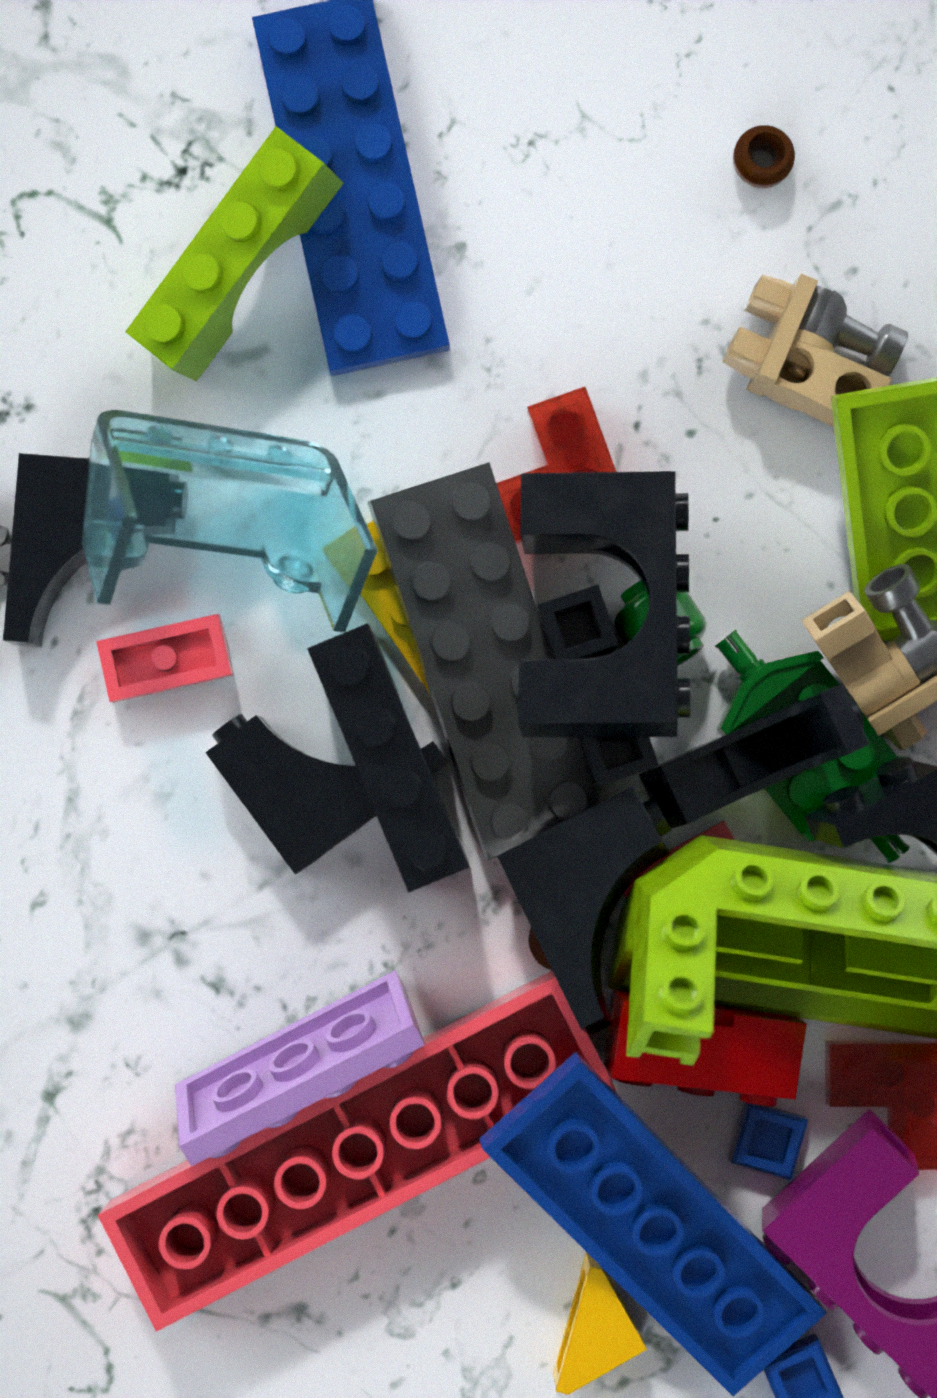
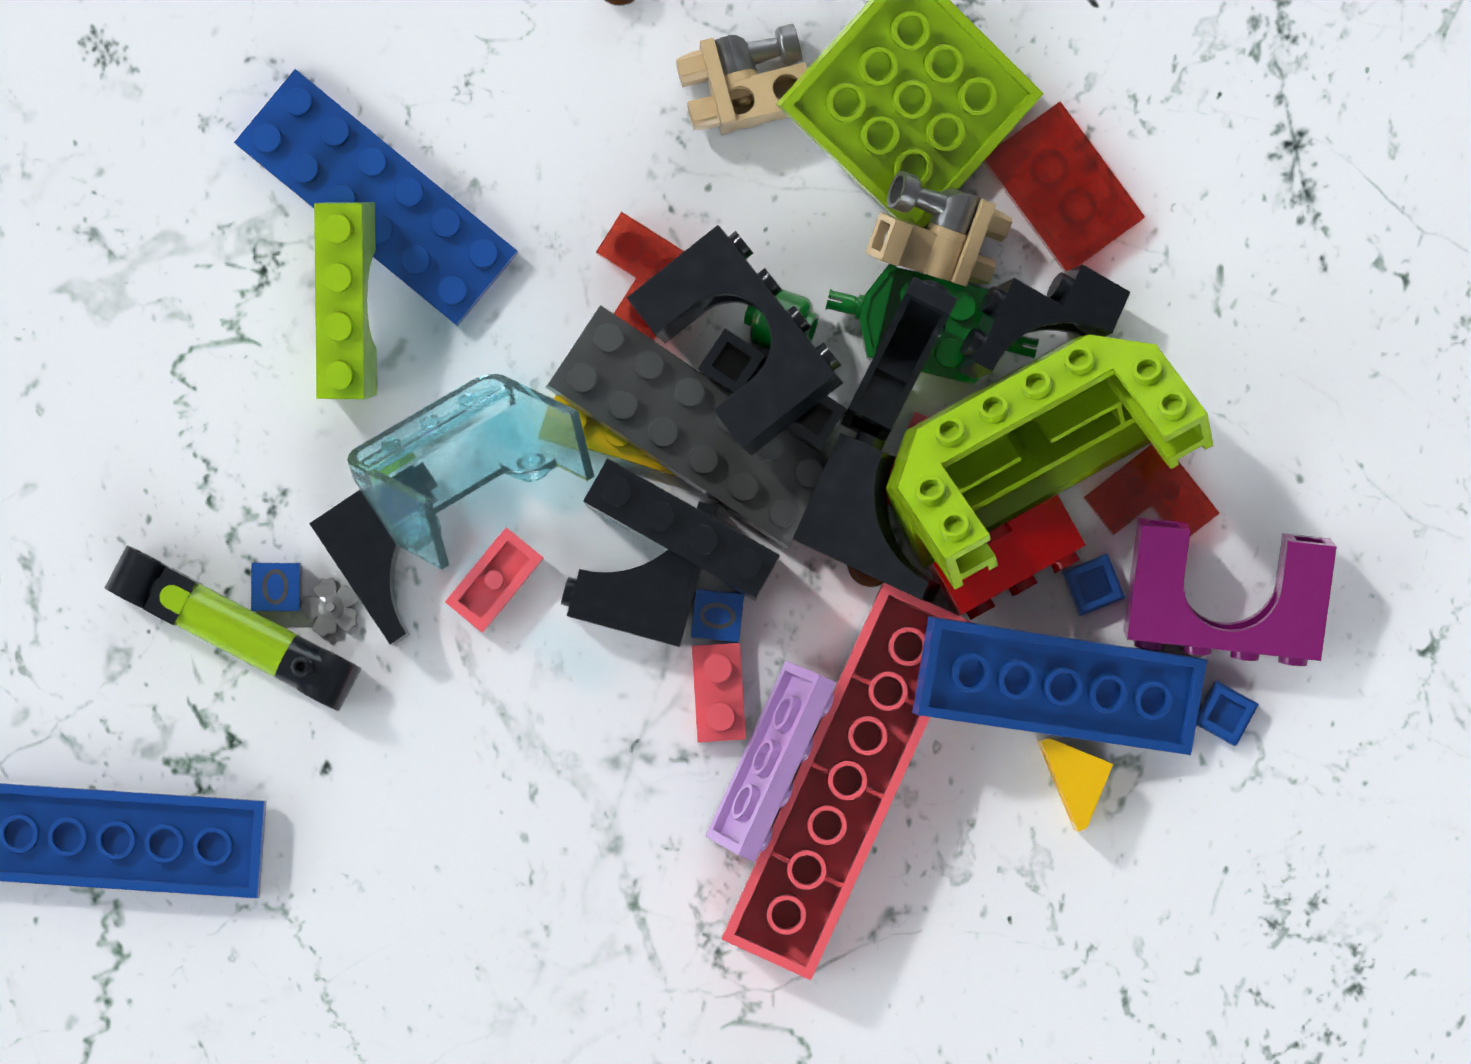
camera: 35 degrees left, 0 degrees up
(302, 949) = (718, 692): none -> coral plate
(361, 871) = (717, 615): none -> blue tile

